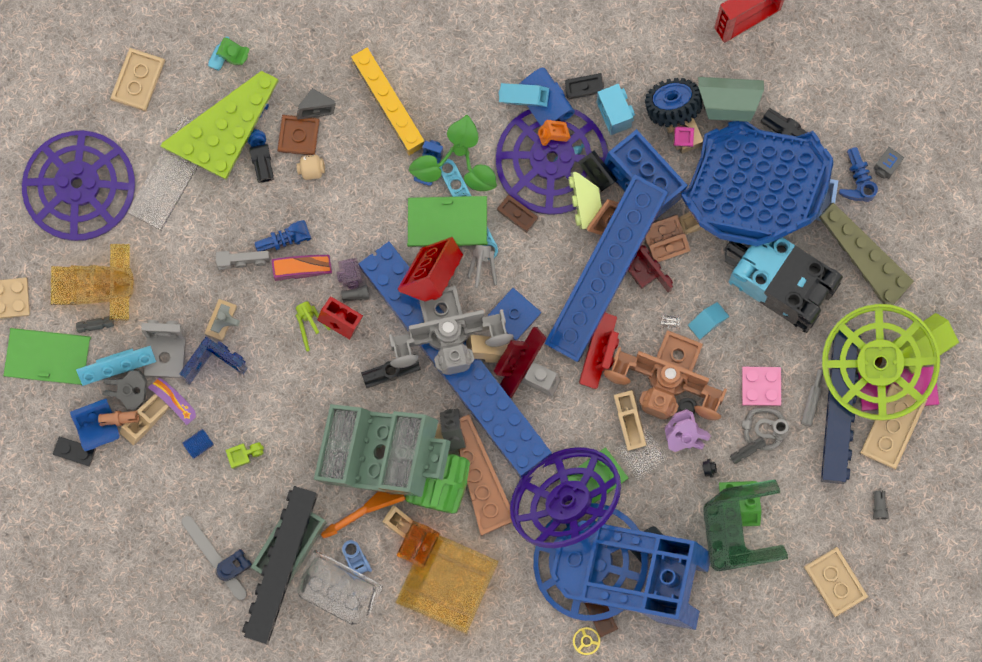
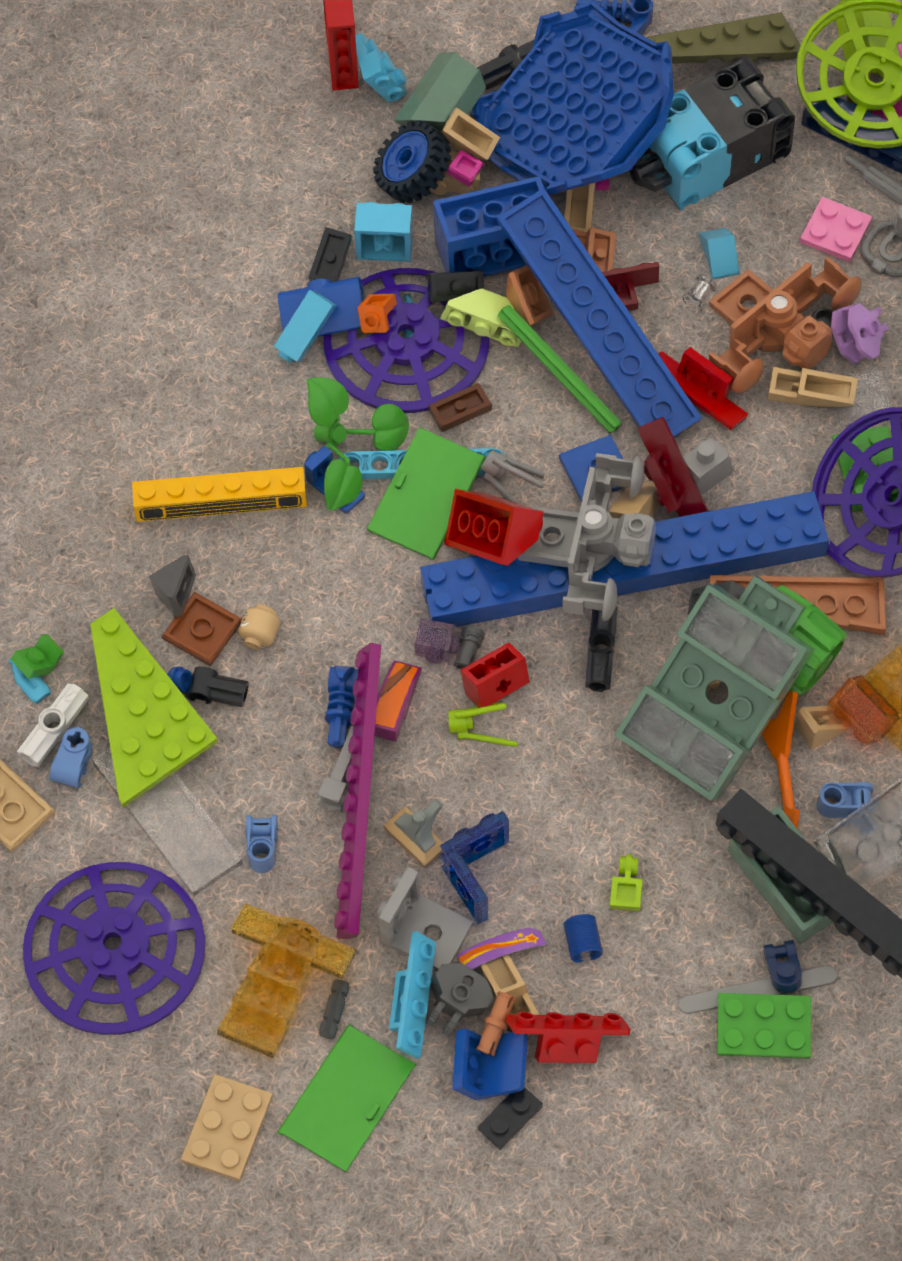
camera: 65 degrees left, 15 degrees down
(131, 460) = (567, 1036): none -> red bracket
(177, 104) = (71, 762): none -> medium blue piece
(178, 234) = (261, 837): none -> medium blue piece
(191, 570) = (764, 1025): none -> bright green plate
(207, 83) = (43, 739): none -> white piece
(233, 270) = (357, 800): none -> magenta plate
(568, 260) = (559, 369): none -> bright green axle
(705, 128) = (469, 135): none -> tan slope
(734, 48) = (379, 70): none -> medium azure plate

